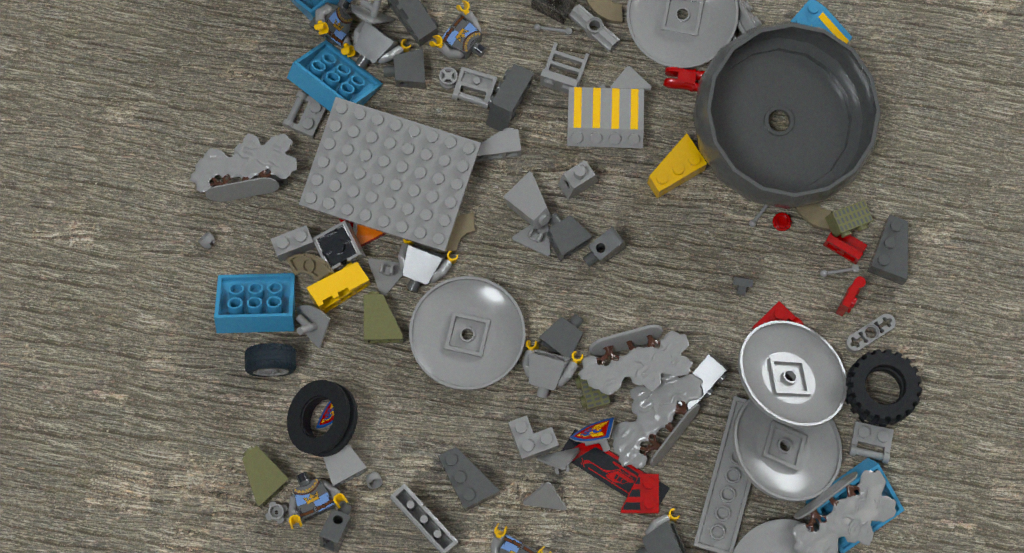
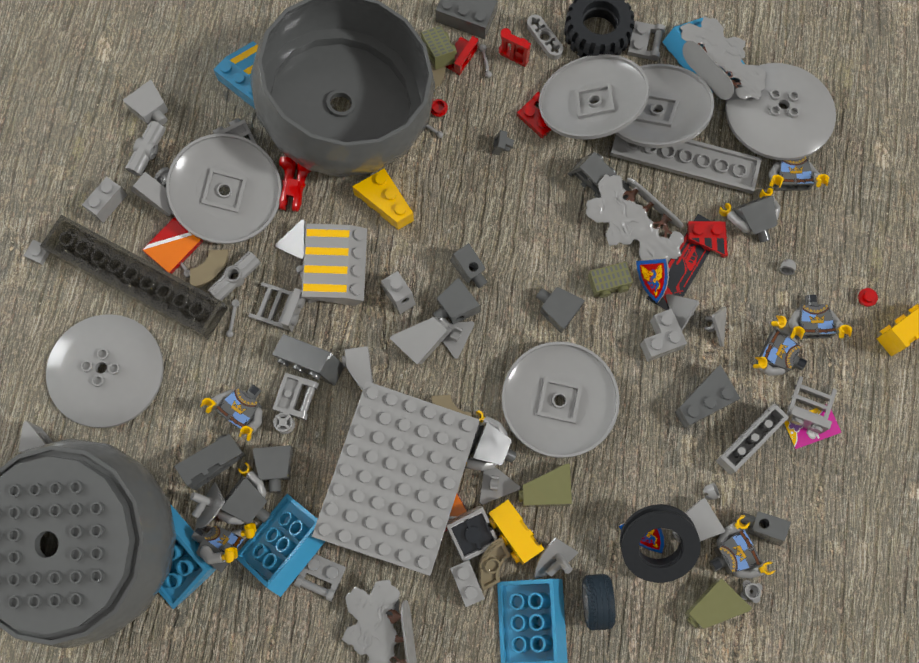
camera: 90 degrees left, 0 degrees up
(548, 369) = (594, 320): light grey torso -> none
(640, 364) = (588, 231): light grey plant -> none

